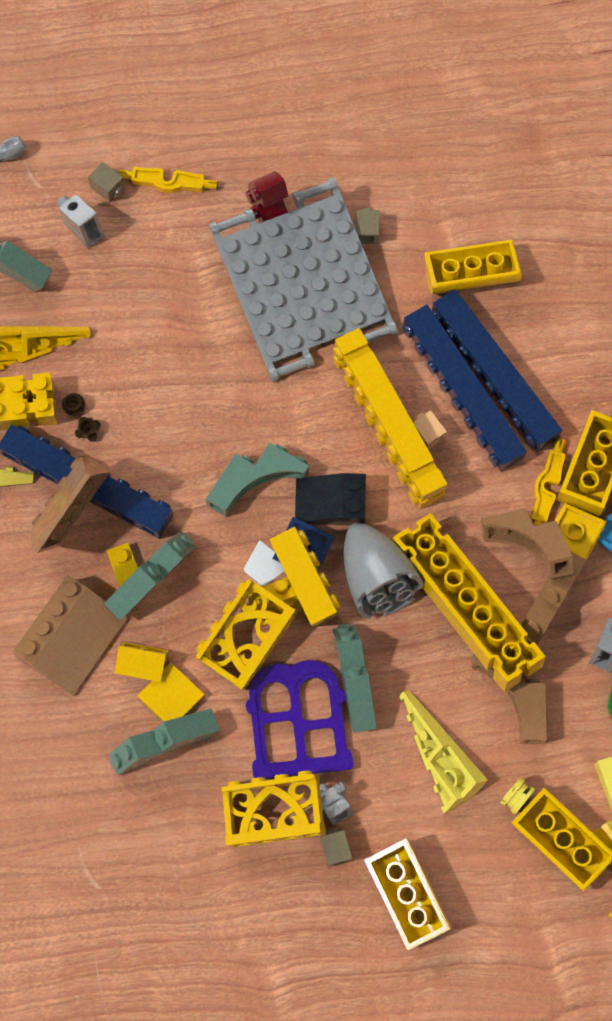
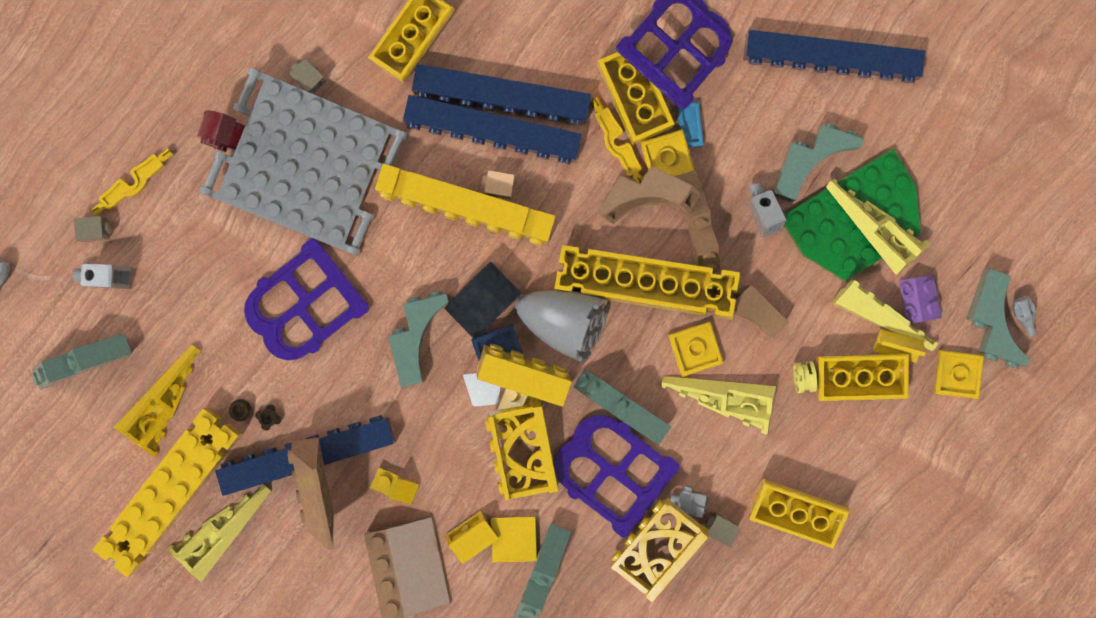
camera: 45 degrees left, 15 degrees up
(150, 574) = (418, 475): sand green arch -> none
(156, 370) = (272, 328): none -> dark purple window
(453, 693) = (695, 349): none -> yellow tile

